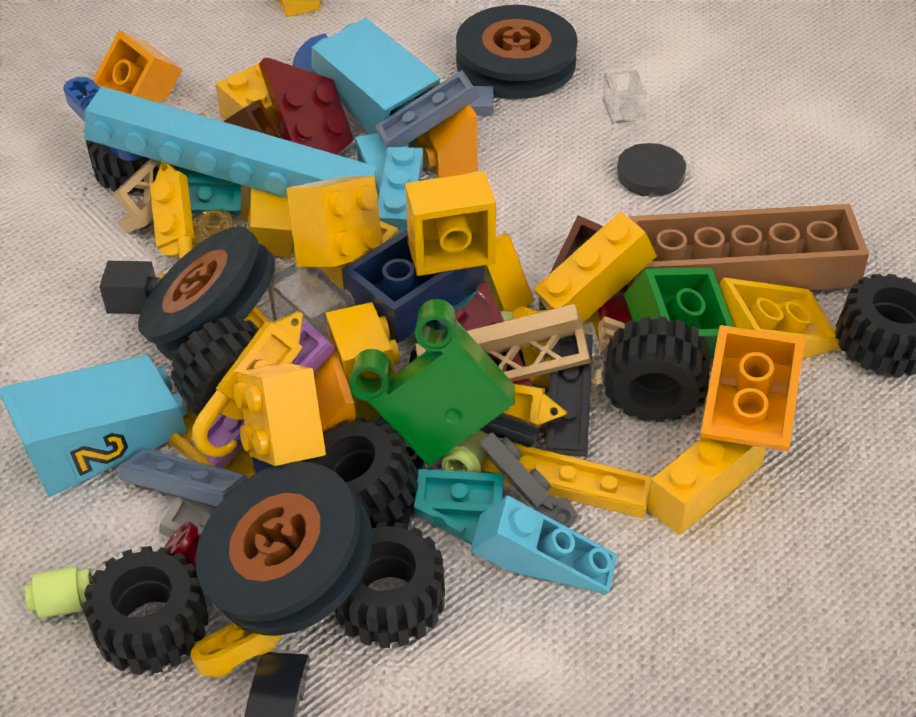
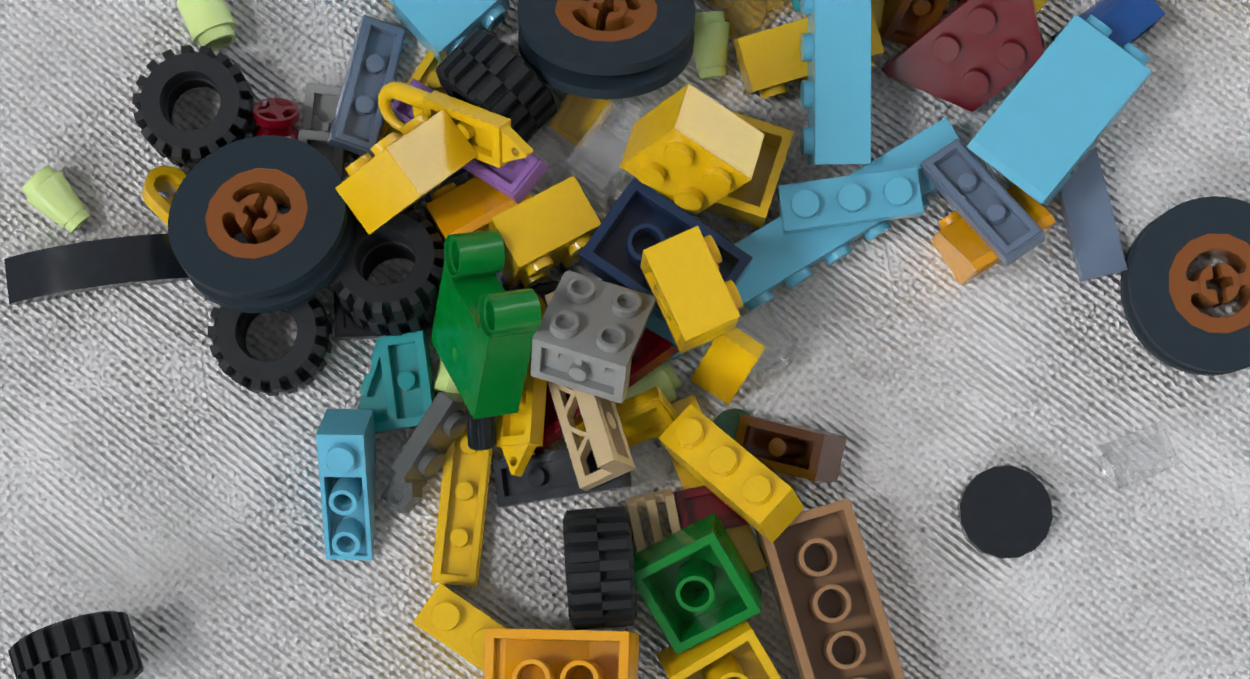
camera: 70 degrees right, 35 degrees up
(482, 296) = (590, 336): none -> light grey bracket

